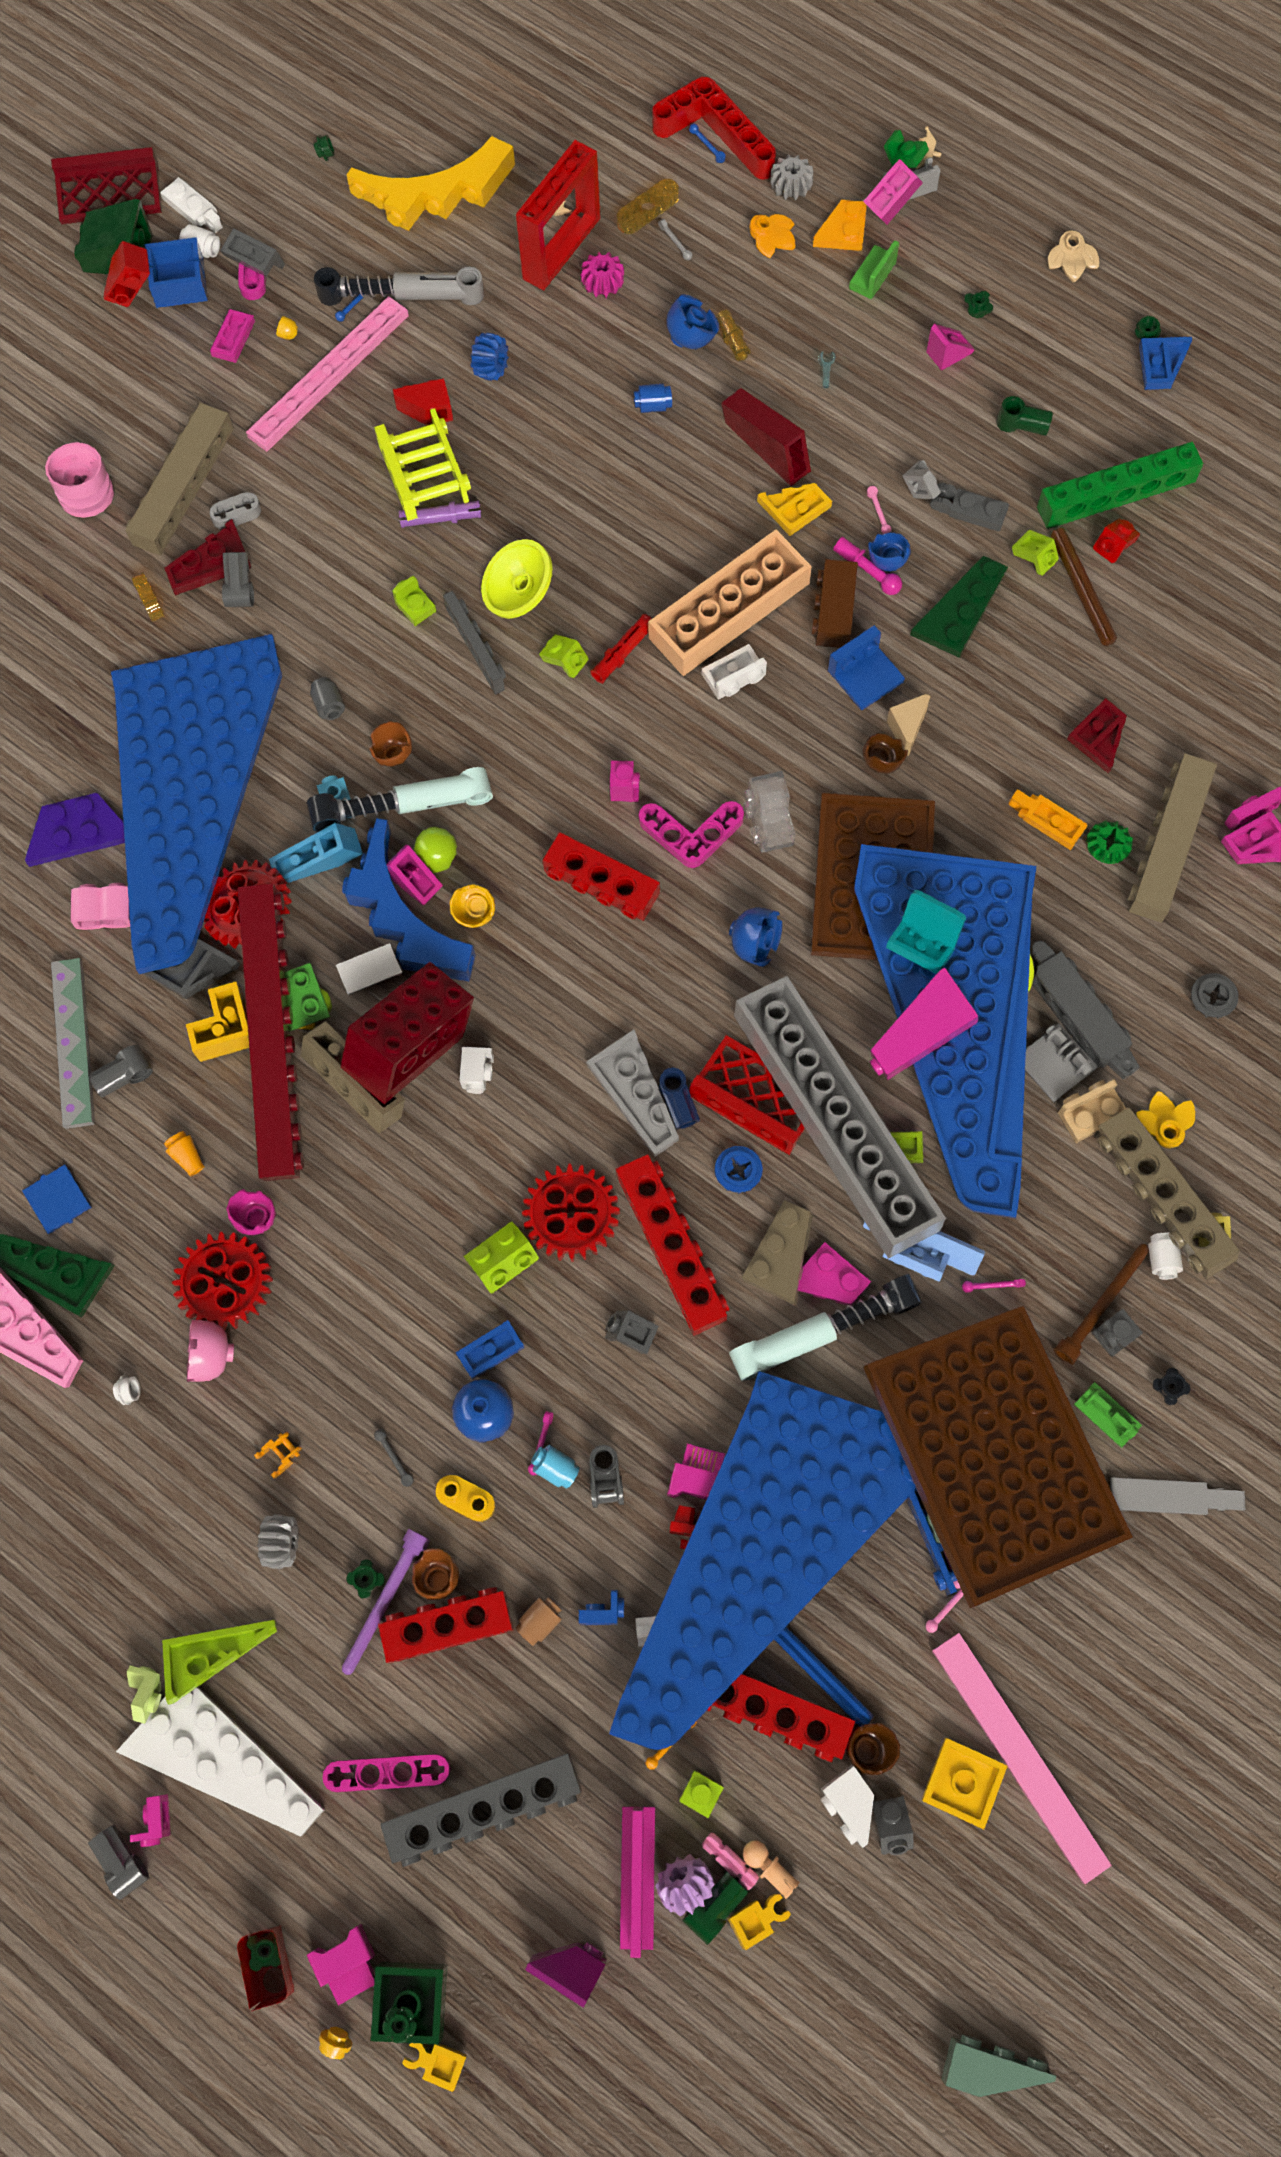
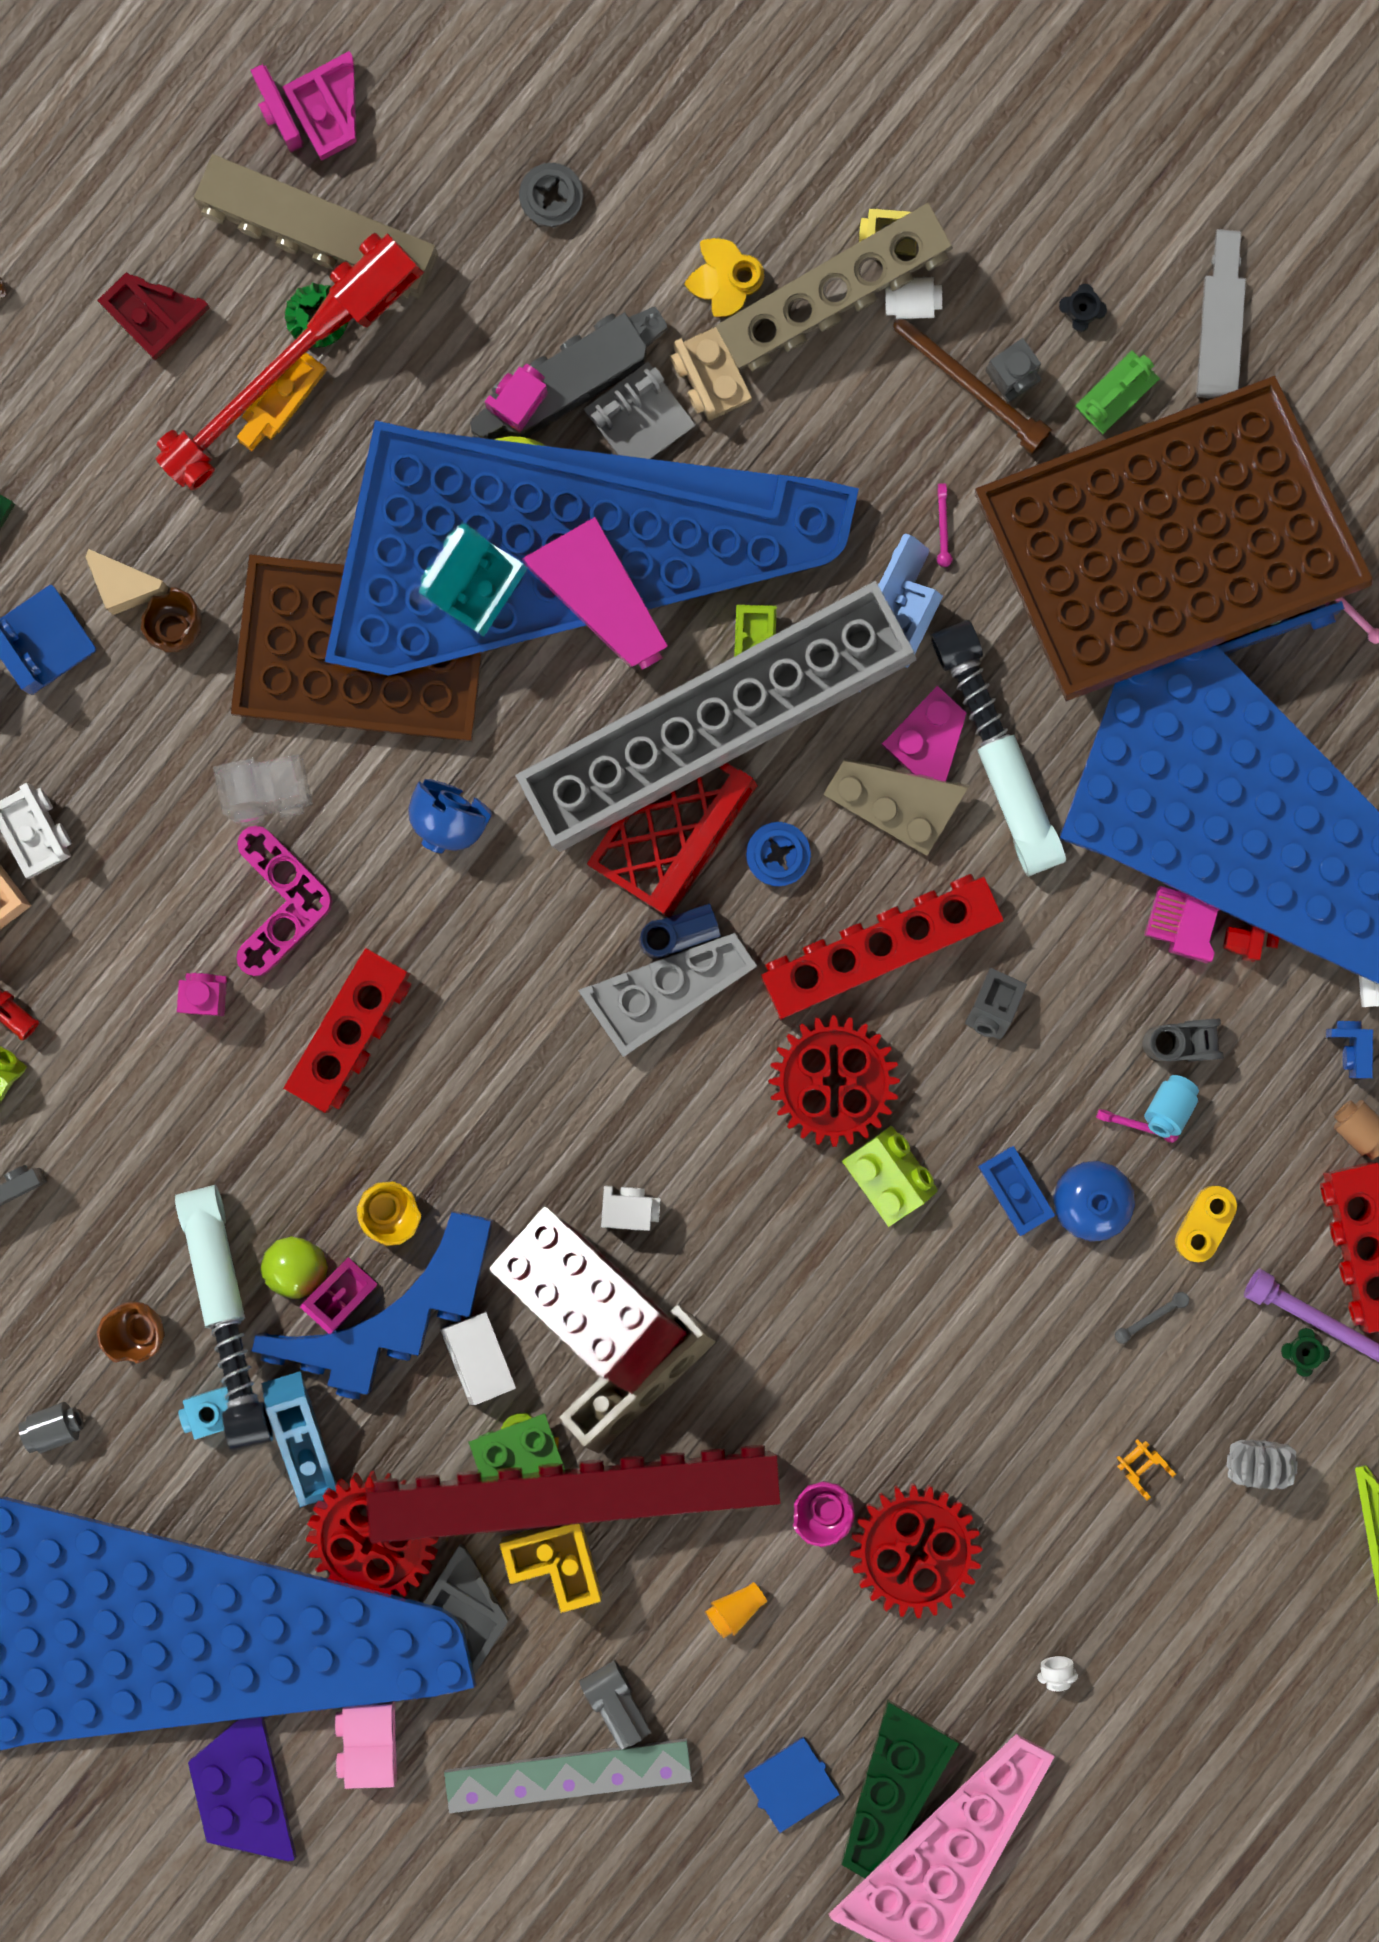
camera: 90 degrees left, 15 degrees up
(207, 1351) = (1013, 1567): bright pink cylinder -> none
(435, 1574) = (1305, 1261): dark orange hair -> none
(1062, 968) = (518, 397): none -> dark pink brick
(1124, 860) = (358, 293): none -> red bar

